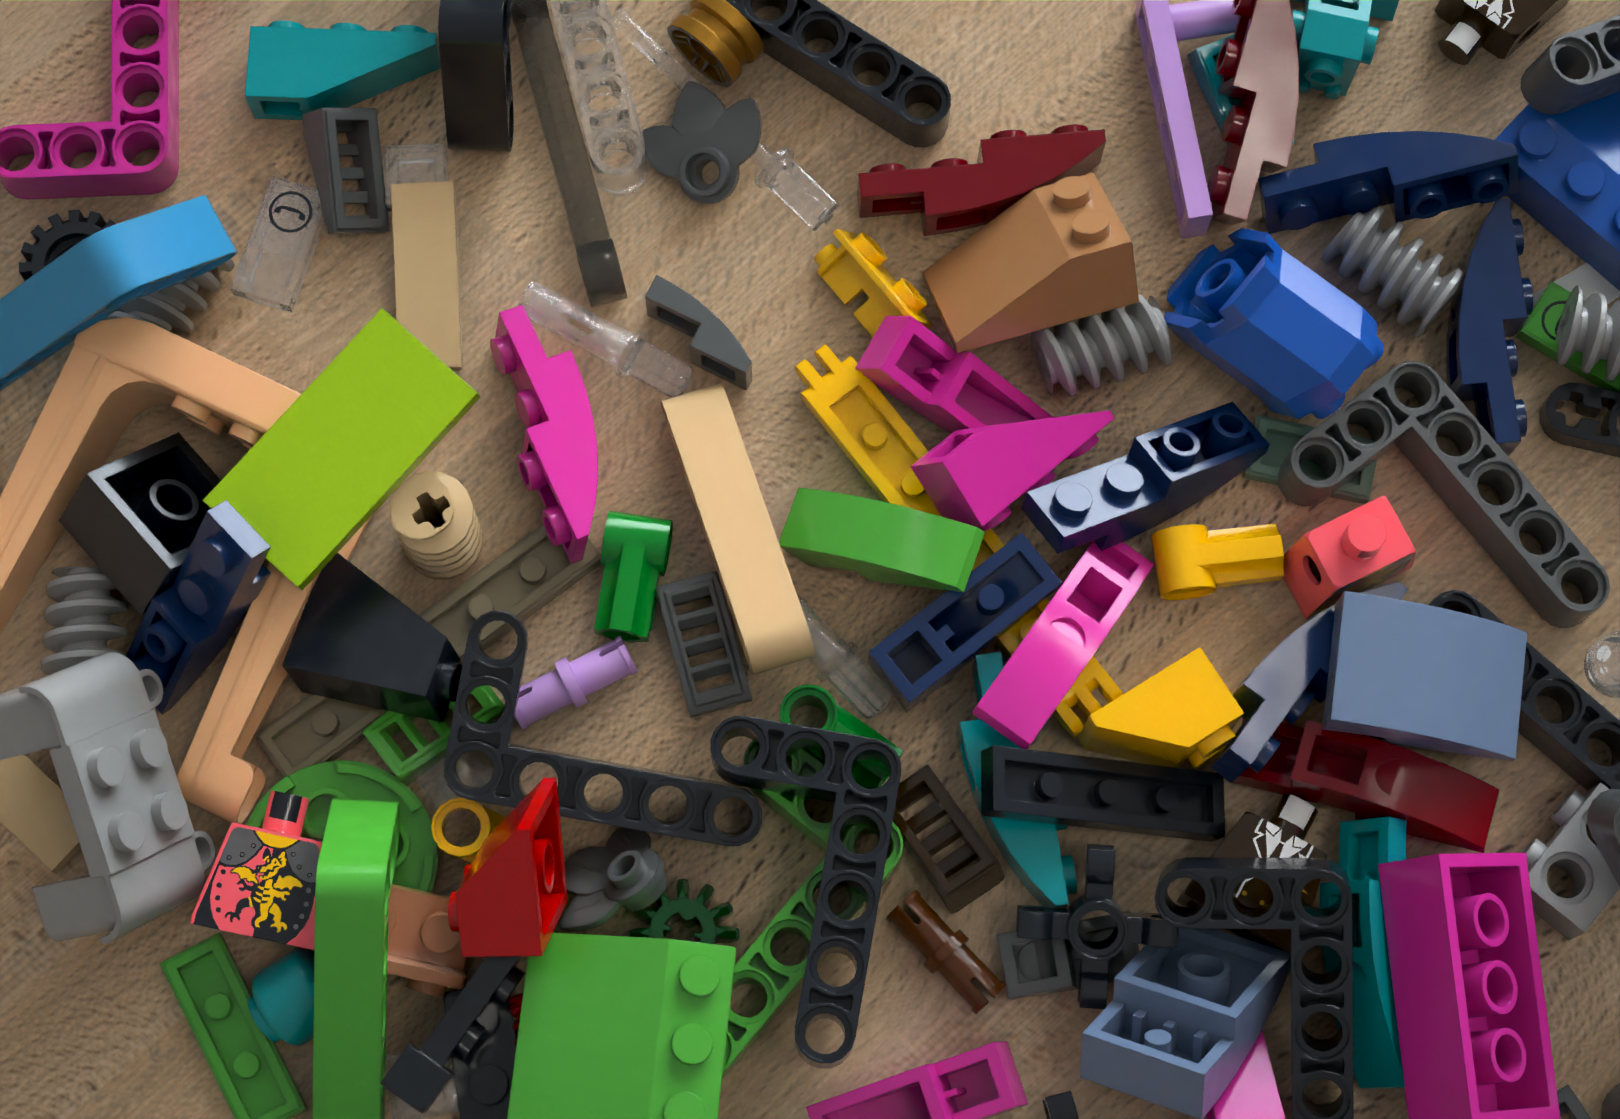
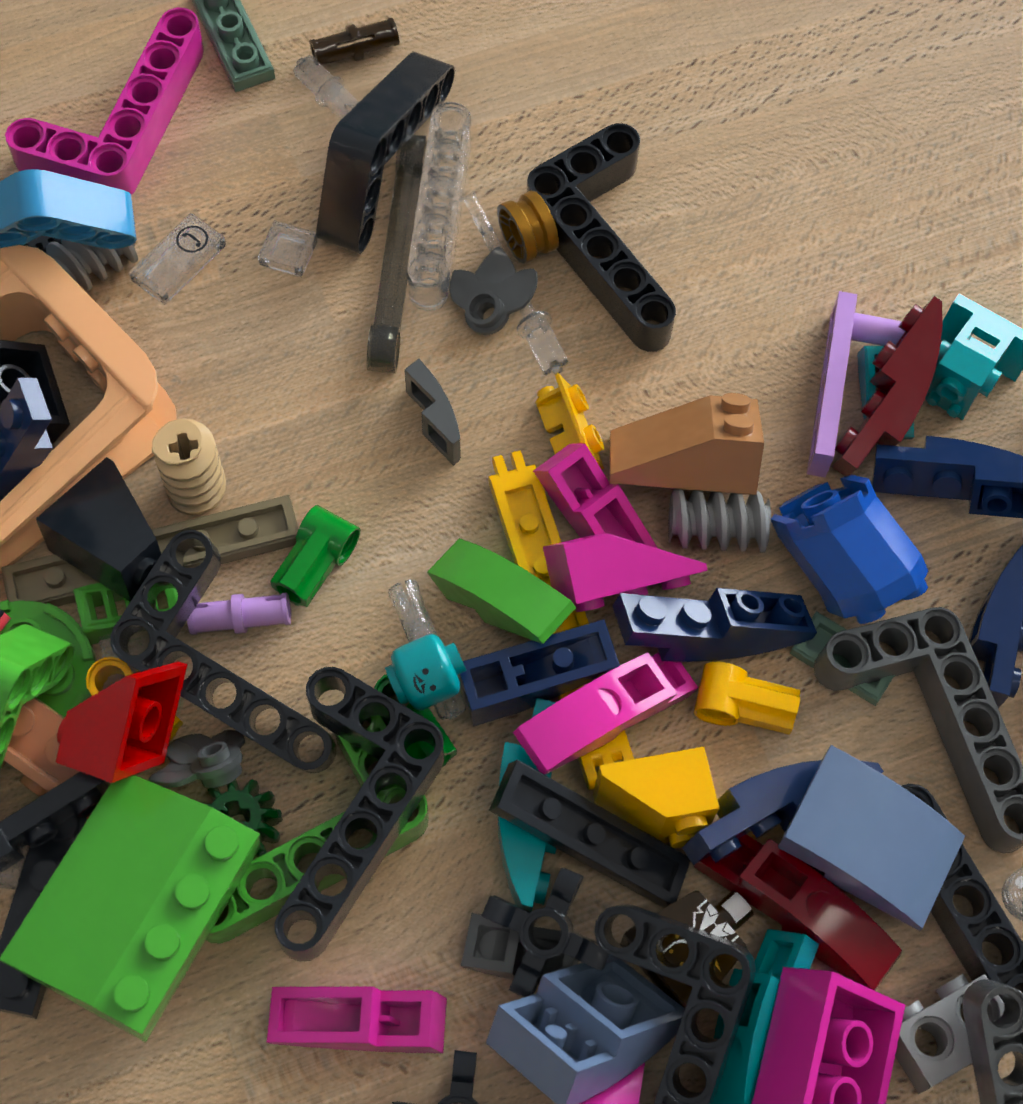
camera: 20 degrees right, 10 degrees down
(337, 67) = (257, 160): teal slope -> none
(344, 446) = (141, 381): lime tile -> none
(364, 148) = (264, 200): dark grey slope -> none
(428, 266) = (263, 311): tan tile -> none
(559, 435) = (301, 440): dark pink slope -> none
(609, 342) = (379, 407): clear axle -> none
(691, 590) = (346, 581): dark grey slope -> none
(738, 529) = (400, 548): tan beam -> none
(839, 678) = (425, 672): none -> teal head
(946, 951) = (428, 911): reddish brown pin -> none
(967, 195) = (657, 385): dark red slope -> none
(970, 883) = (467, 859): dark brown slope -> none
(1350, 555) = (851, 722): coral torso -> none
(1393, 268) = (954, 543): light grey piece -> none

